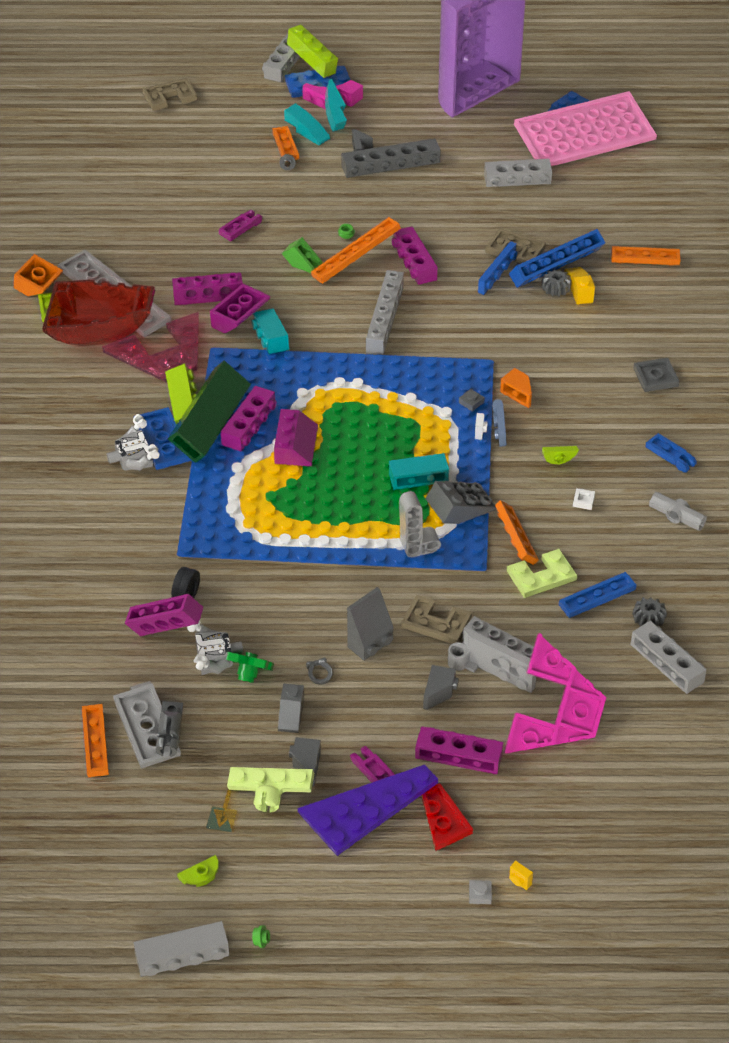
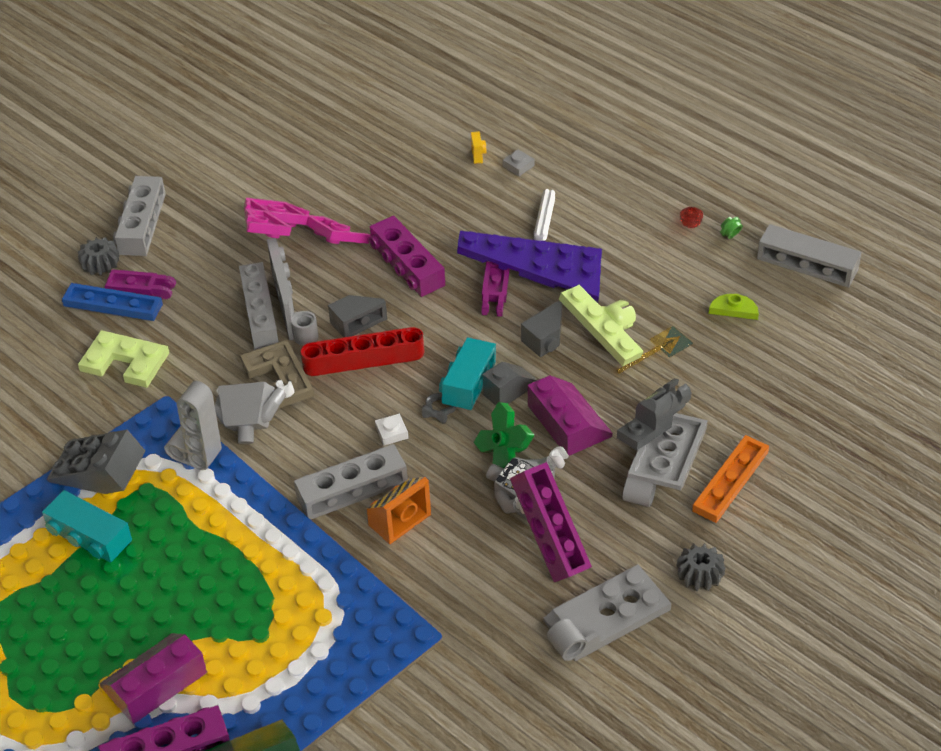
camera: 135 degrees left, 0 degrees up
(67, 673) = (700, 567): none -> dark grey gear
(102, 606) = (580, 628): none -> light grey hinge
(186, 582) = (479, 570): black tyre -> none
(233, 712) = (566, 414): none -> magenta slope
(268, 588) = (400, 509): none -> orange slope
(301, 936) = (691, 217): none -> clear red plate
(314, 590) = (350, 481): none -> light grey brick
(320, 692) = (465, 374): none -> teal brick
(331, 639) = (391, 429): none -> white plate
(368, 625) = (355, 389): dark grey slope -> none
(403, 666) = (362, 351): none -> red beam
(408, 856) = (544, 215): none -> white axle
(422, 580) = (249, 406): none -> light grey torso
(444, 818) = (487, 214): red wing -> none
(516, 532) = (96, 398): orange plate -> none
(599, 616) = (141, 283): none -> magenta hinge

